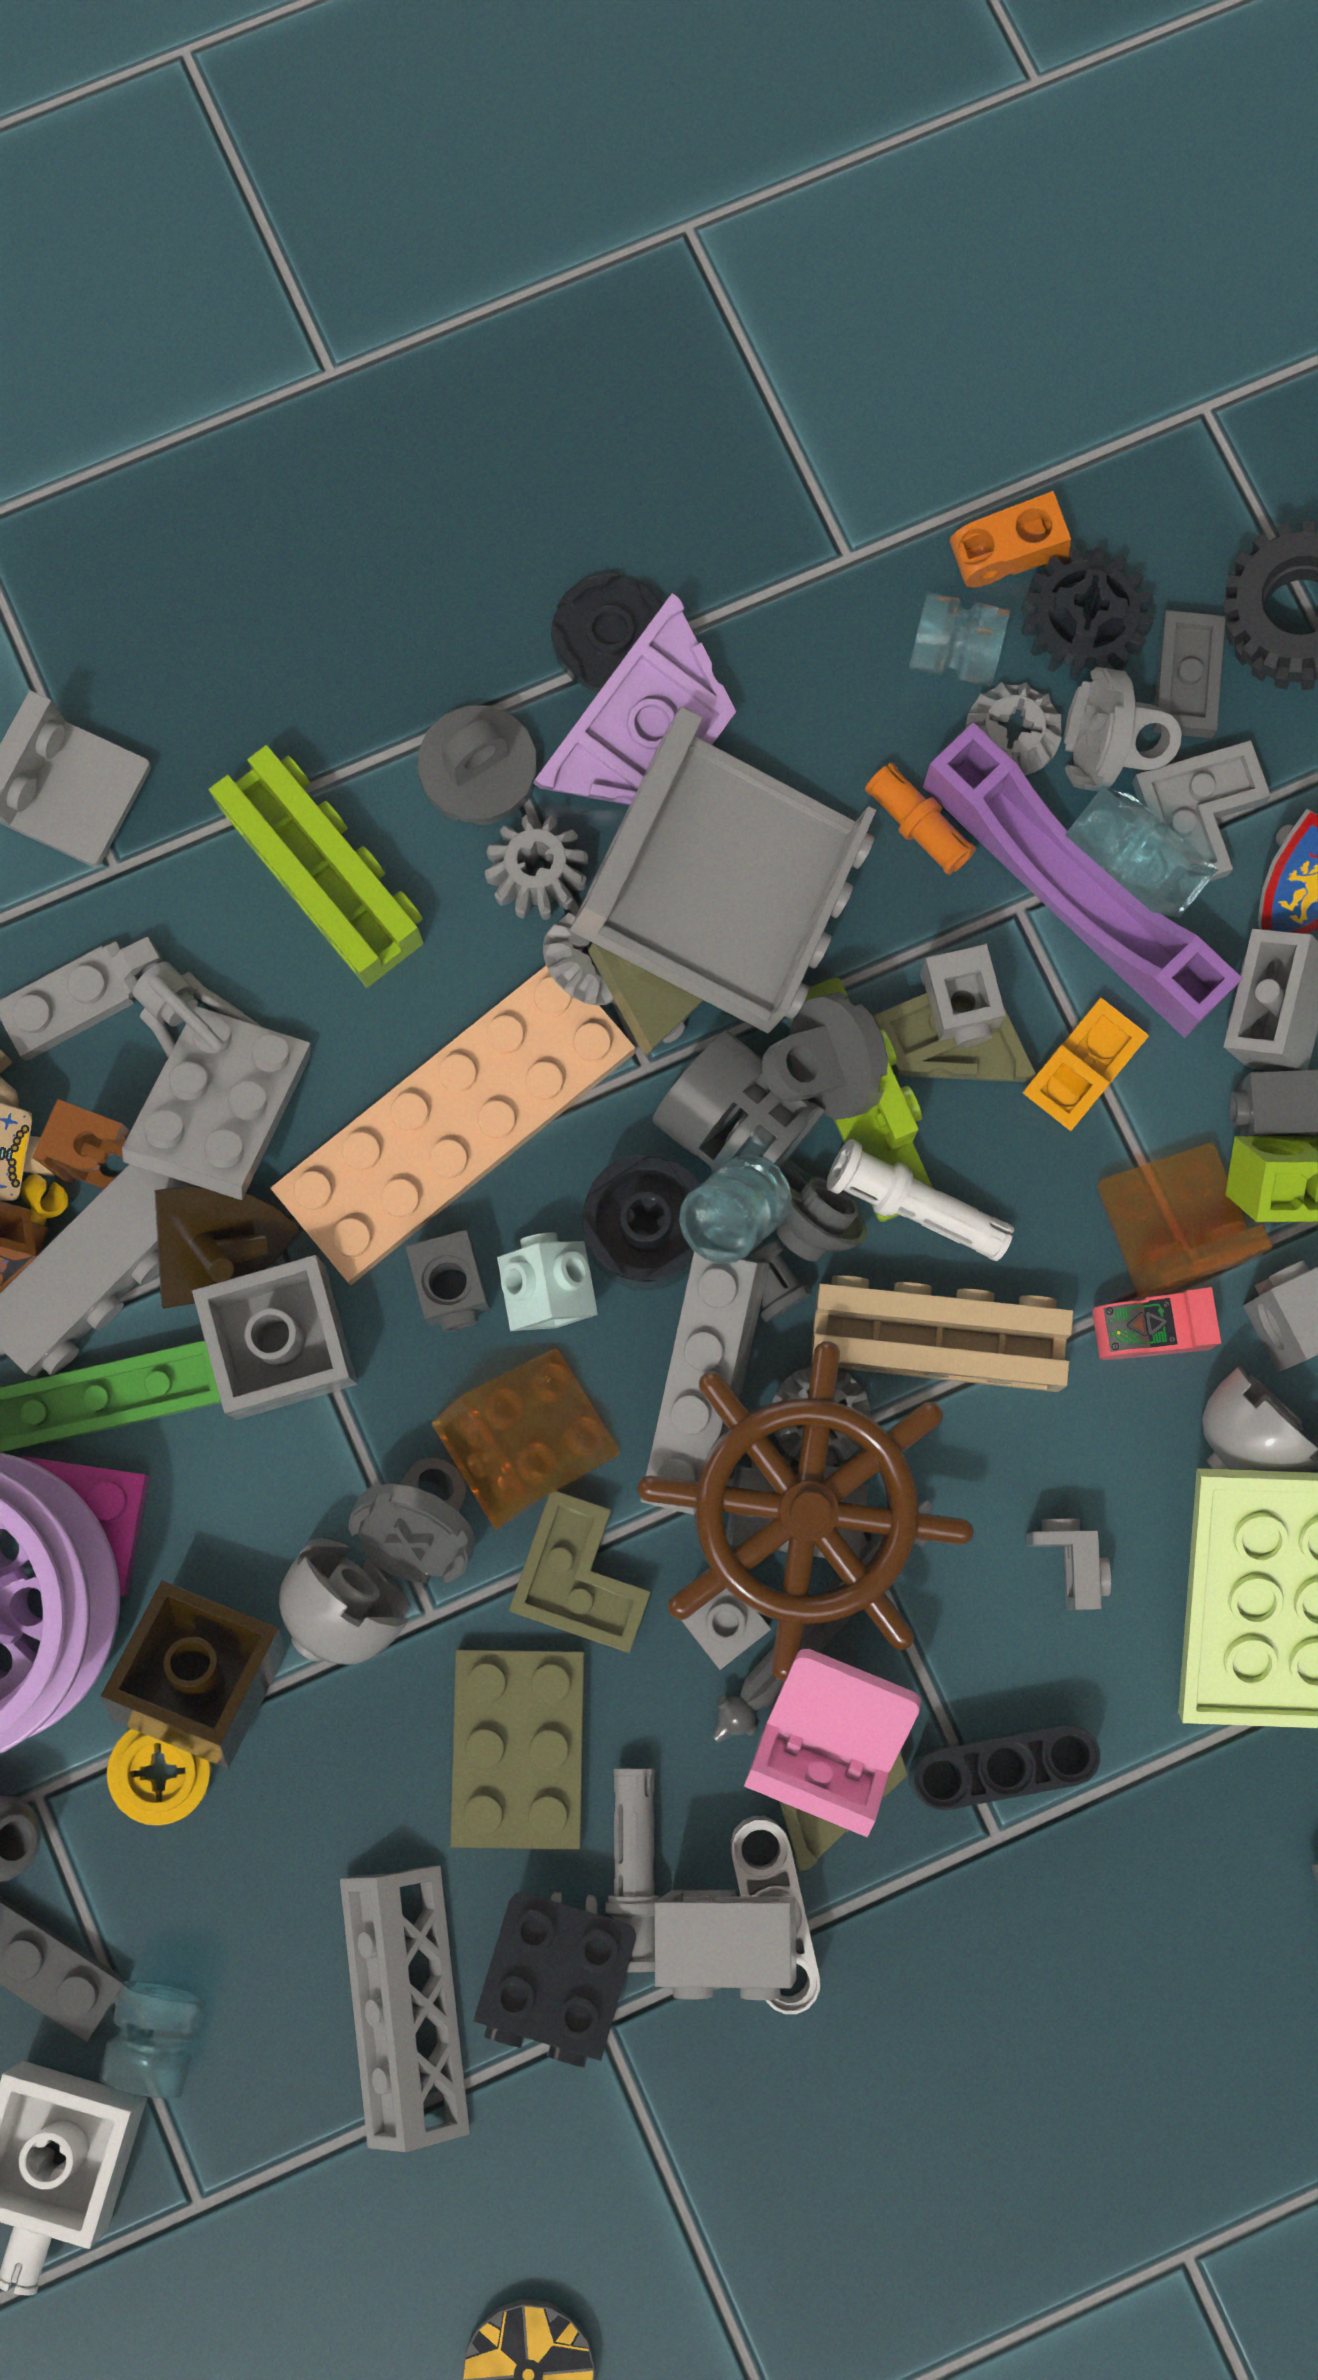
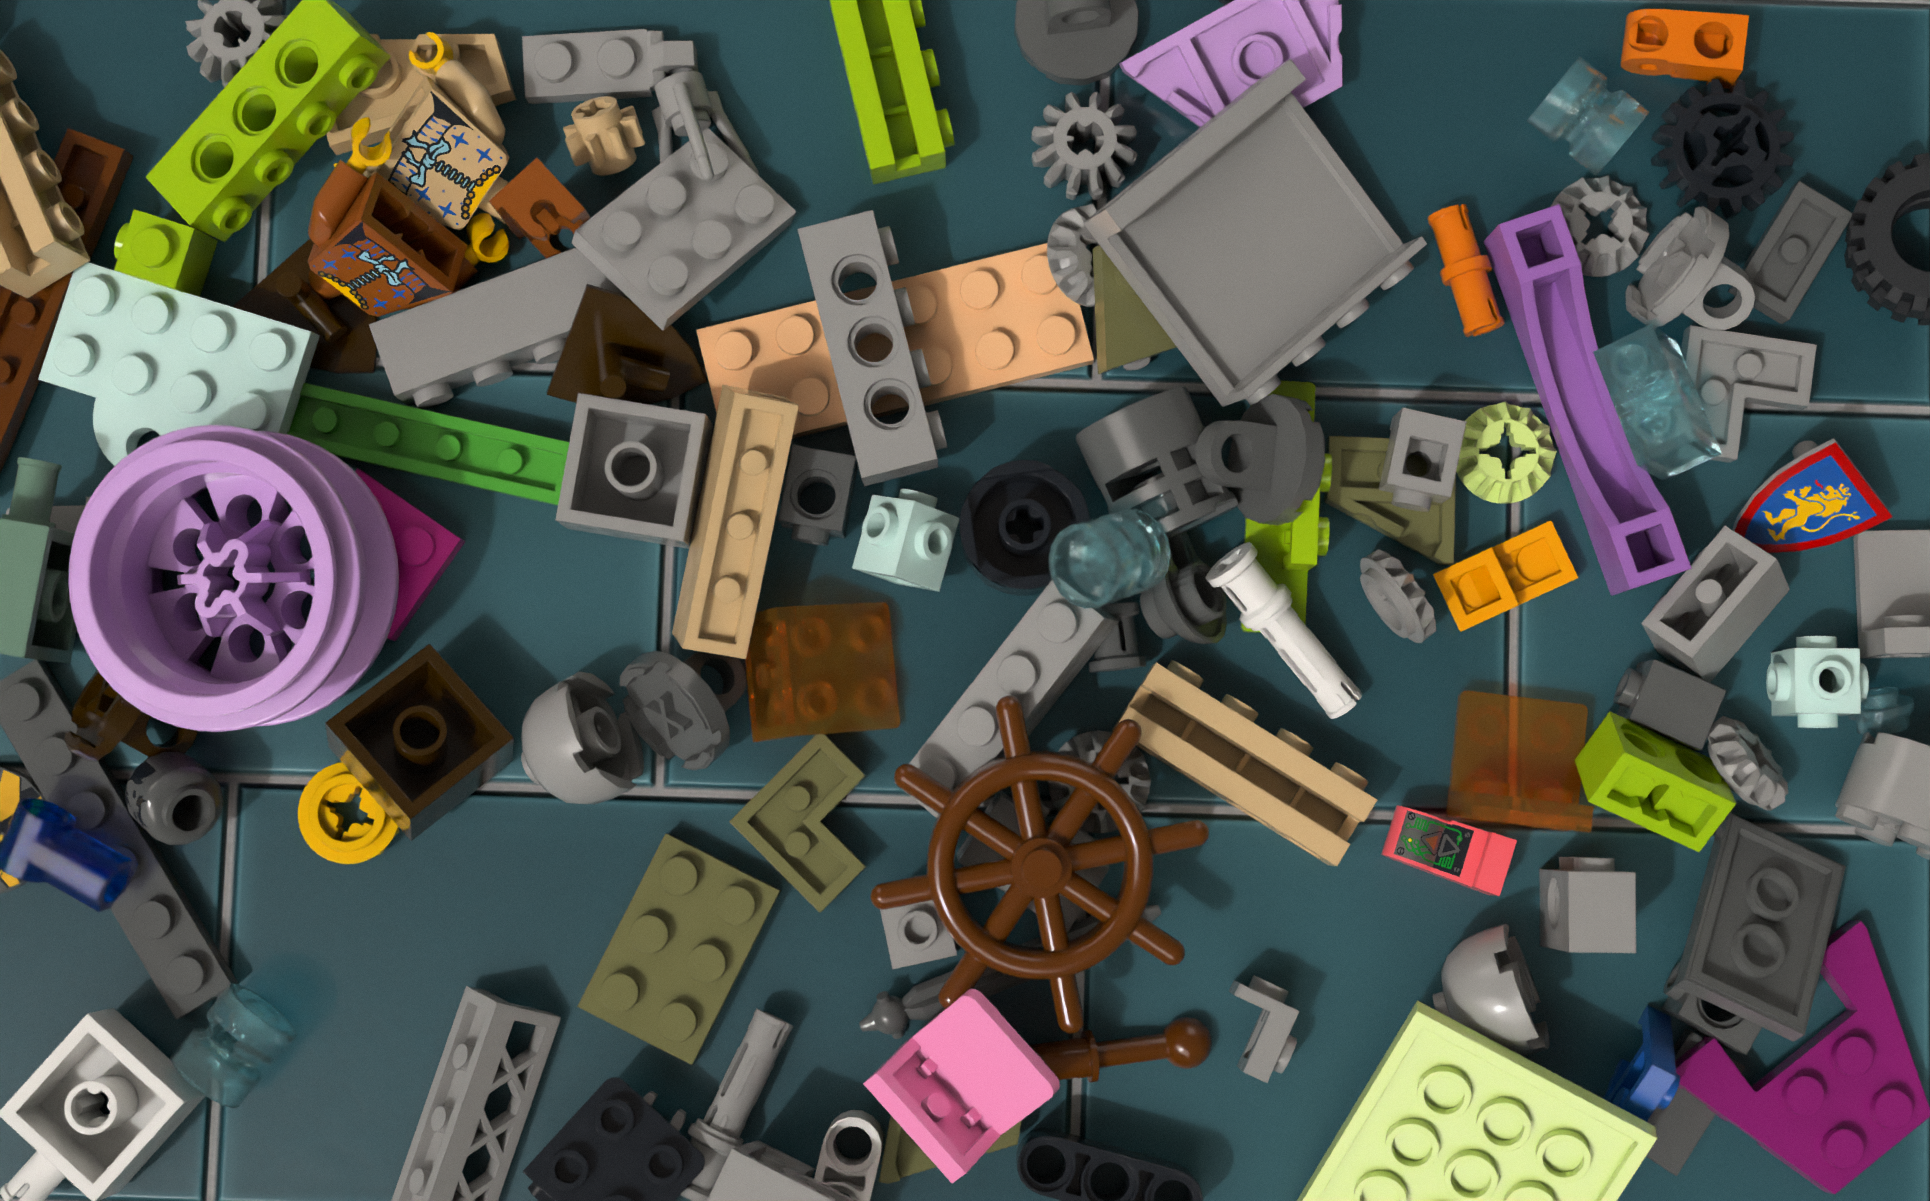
camera: 25 degrees right, 5 degrees up
(107, 1056) = (603, 135): none -> tan gear
(360, 1063) = (832, 254): none -> light grey brick
(386, 1339) = (734, 521): none -> tan brick
(1001, 1126) = (1396, 597): none -> light grey gear
(1008, 1612) = (1183, 1043): none -> reddish brown pin
(1023, 985) = (1484, 474): none -> yellowish green gear

